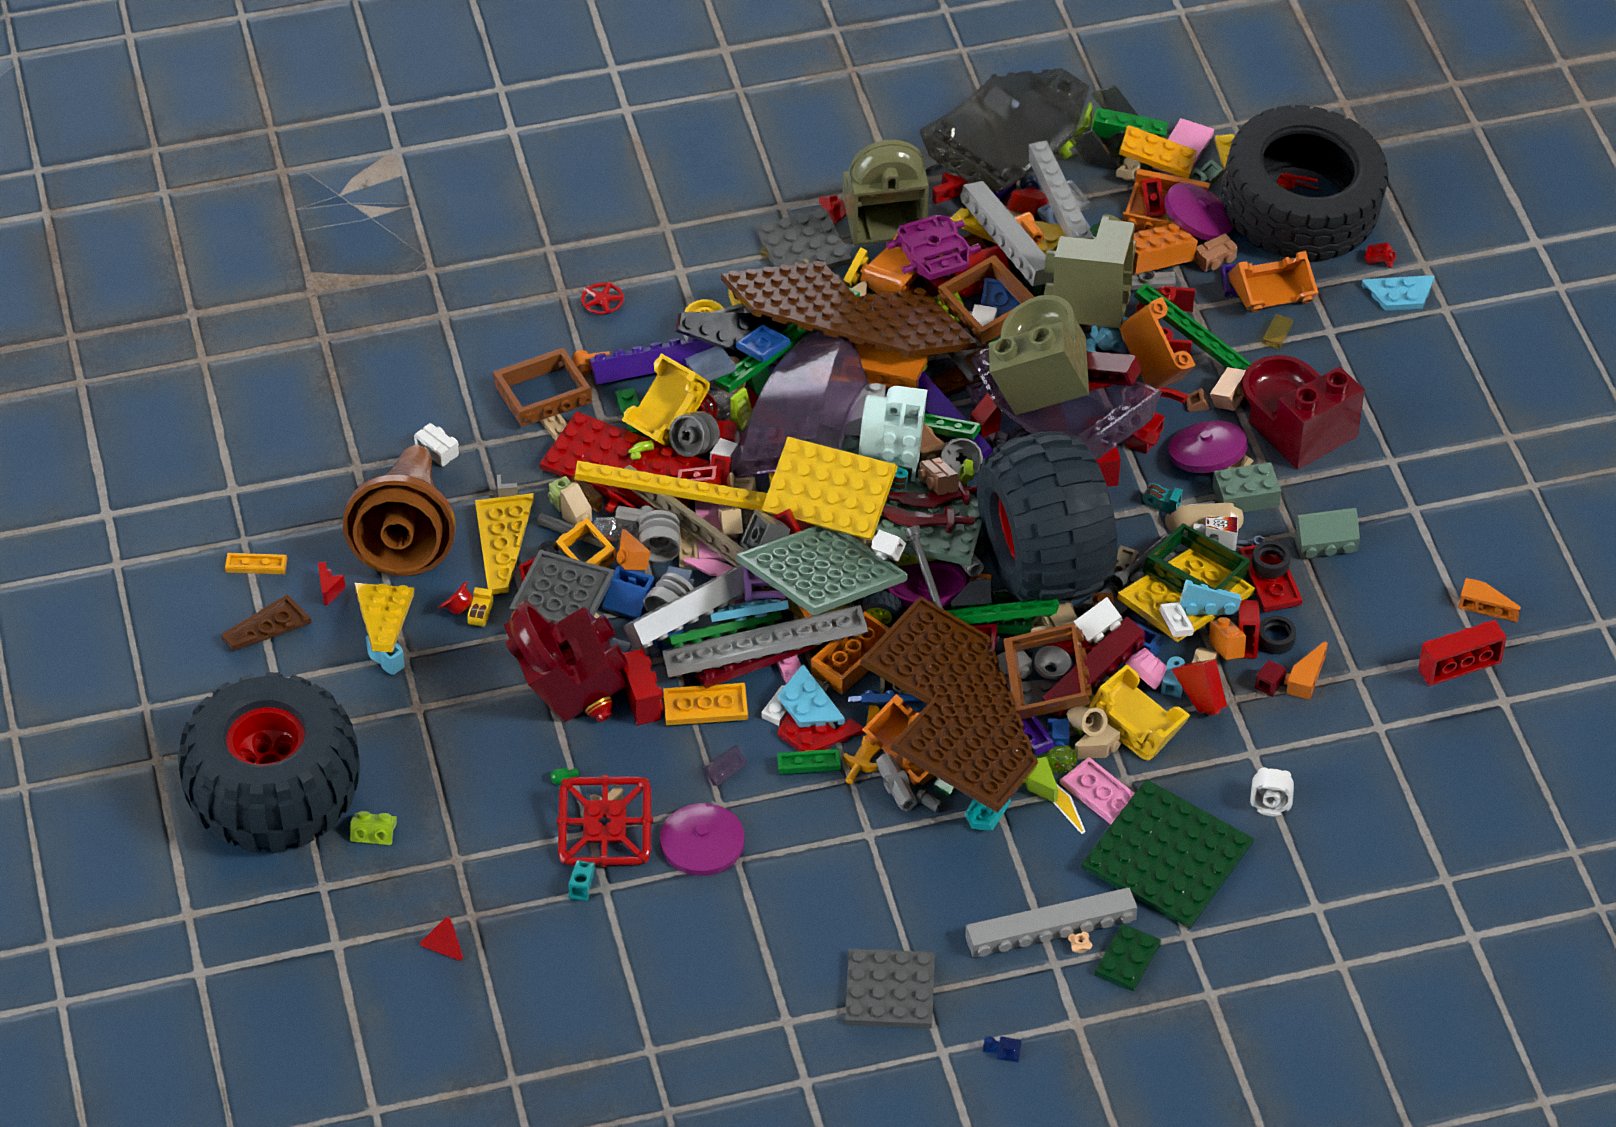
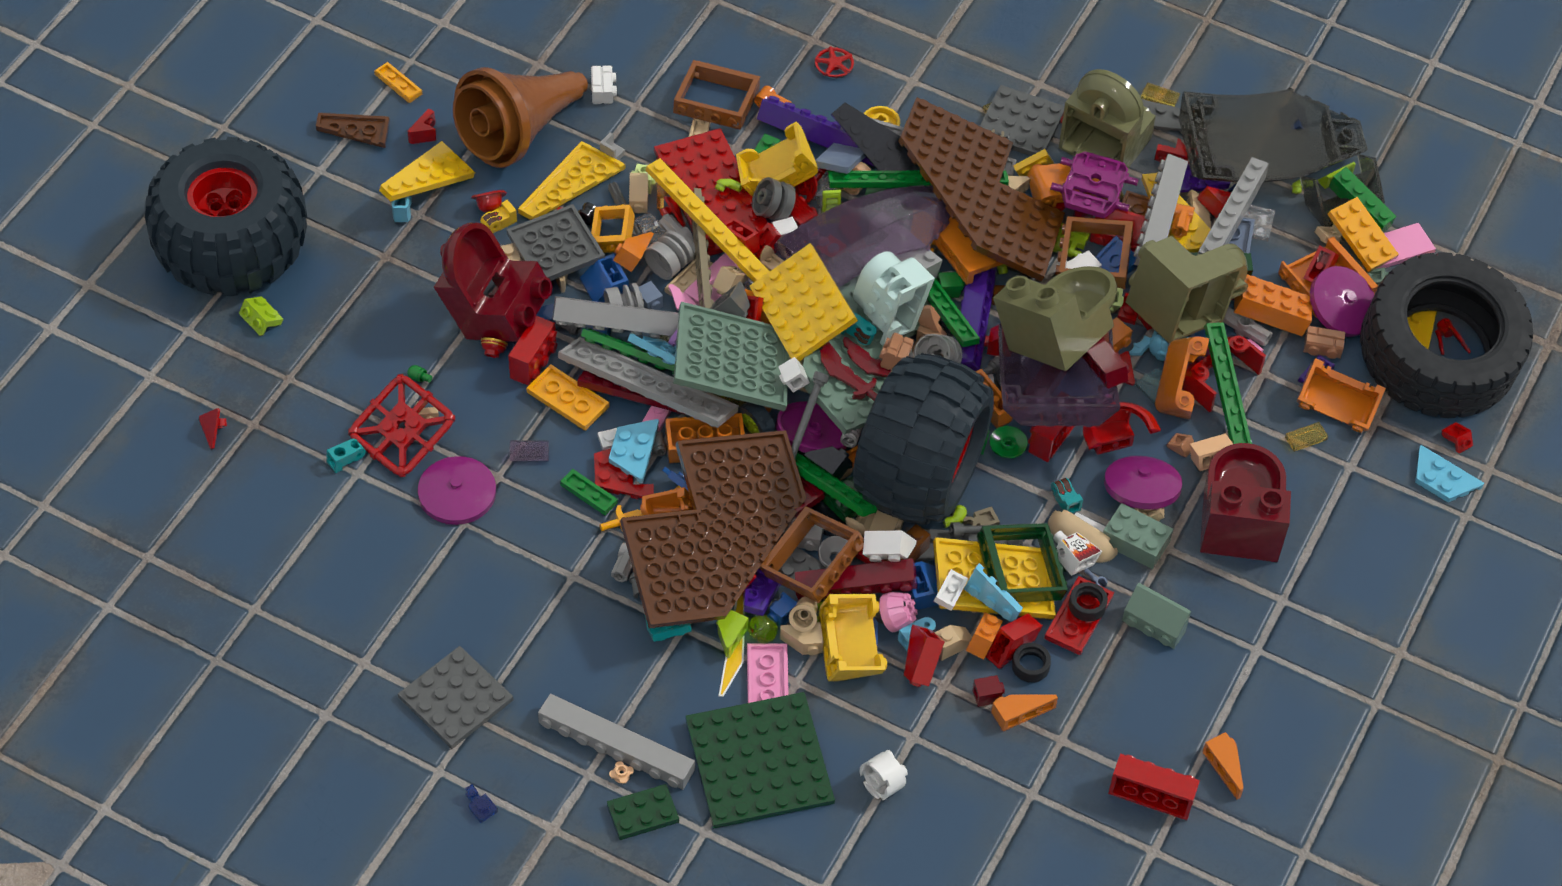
camera: 40 degrees right, 5 degrees up
(763, 343) = (890, 168): blue plate -> none

